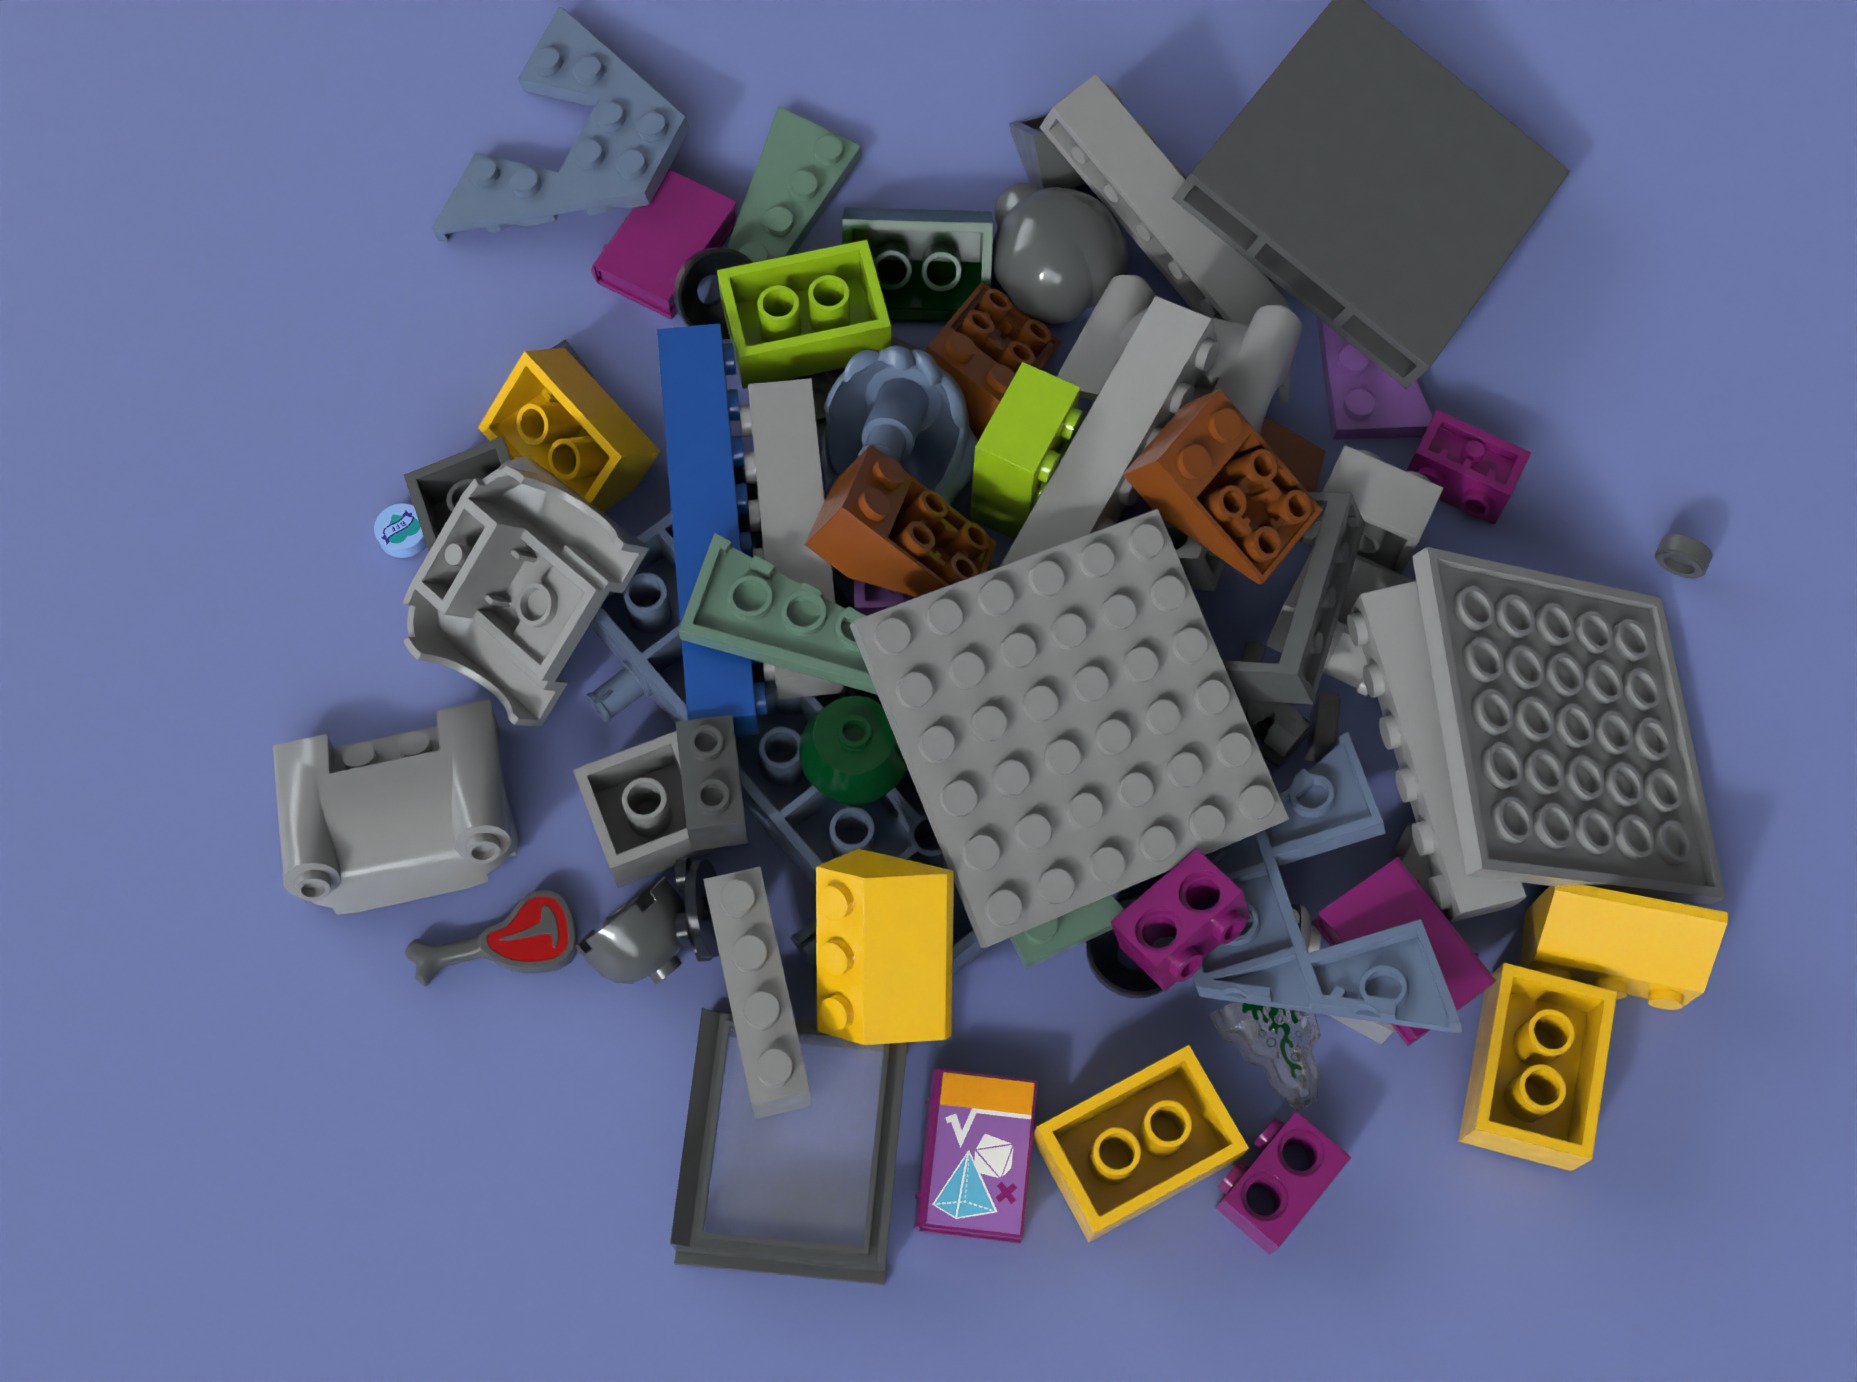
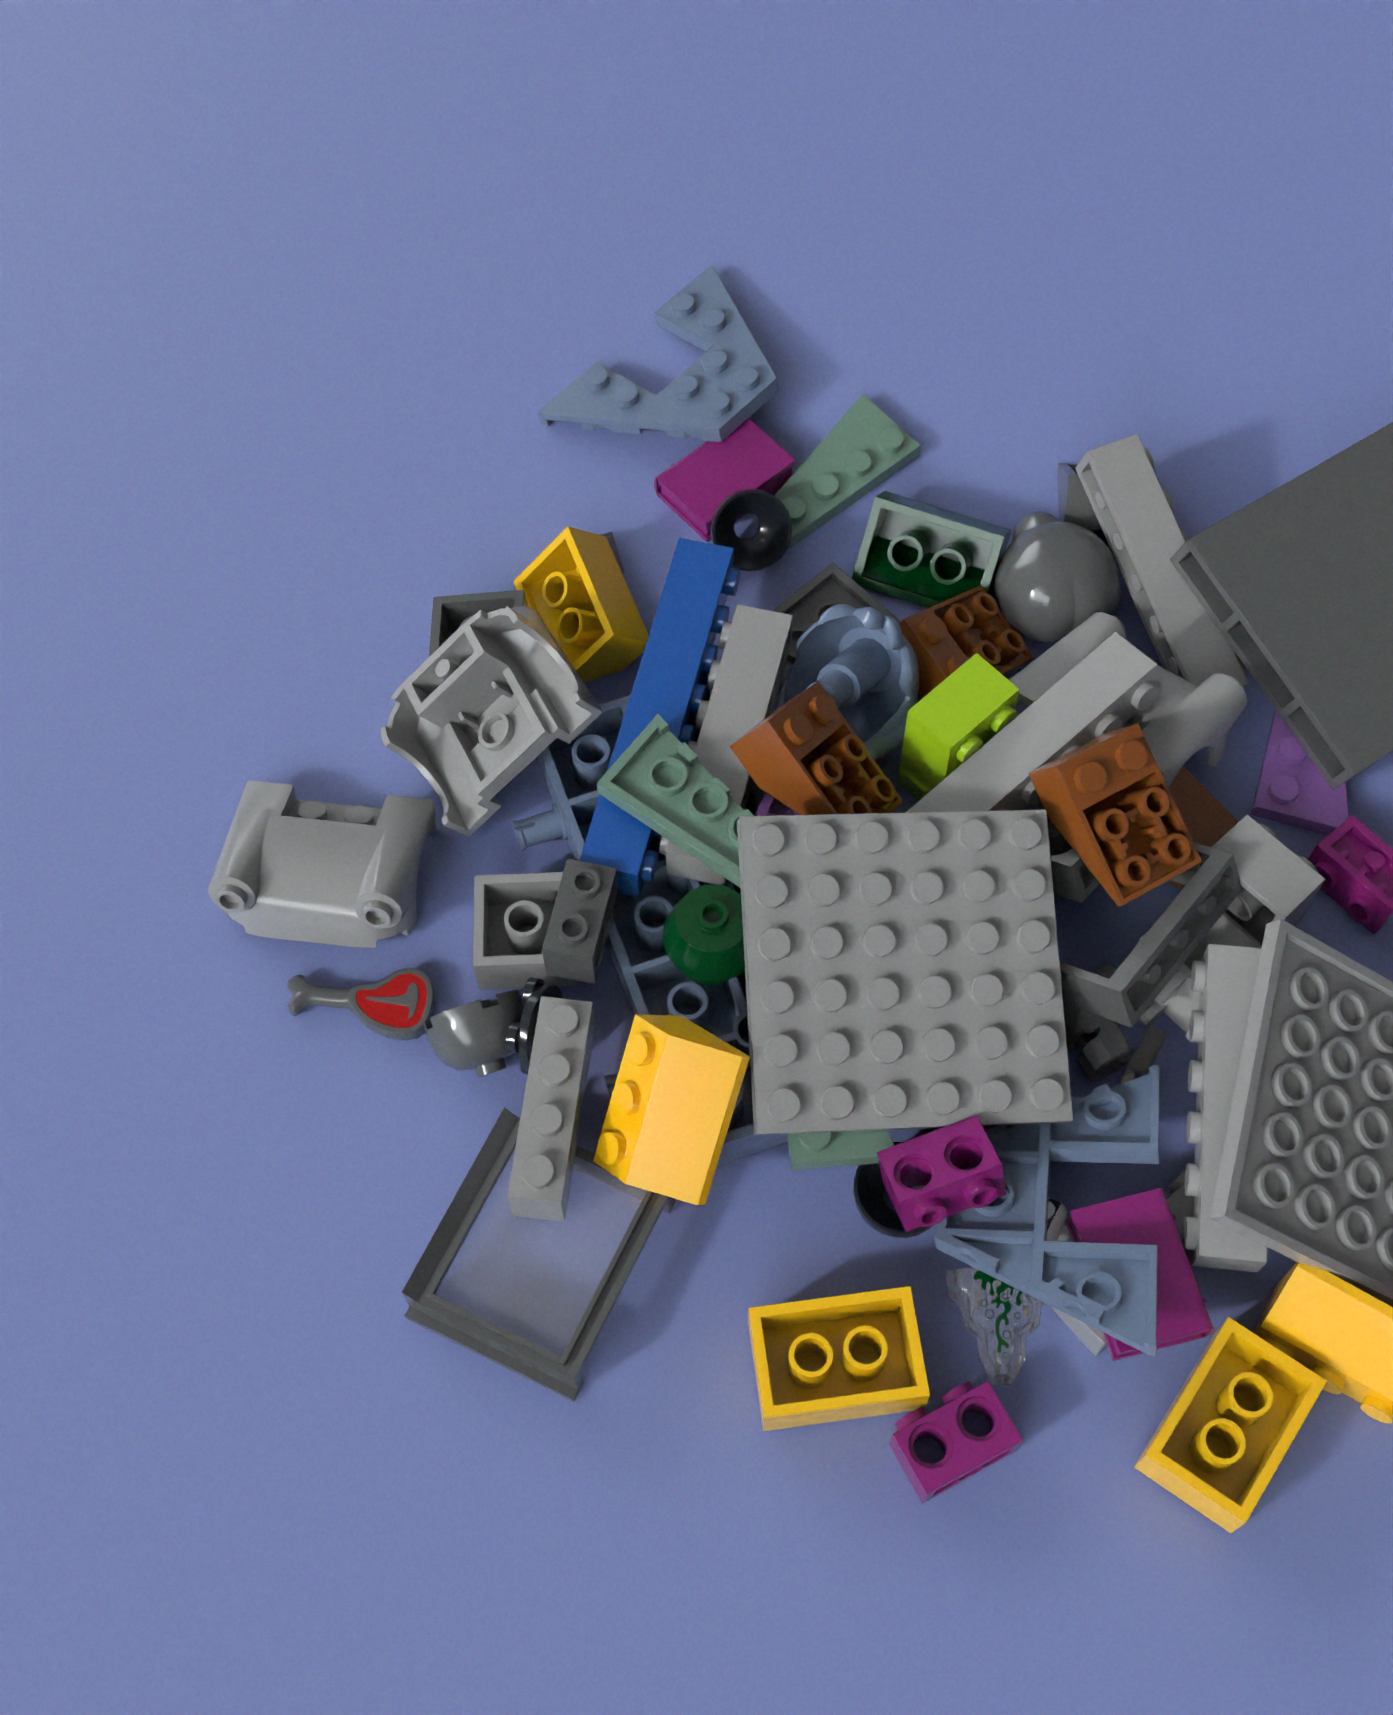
camera: 25 degrees right, 5 degrees down
(399, 531) = (414, 643): light blue tile -> none
(803, 312) = (811, 561): lime brick -> none
(976, 1156) = (693, 1320): piece -> none

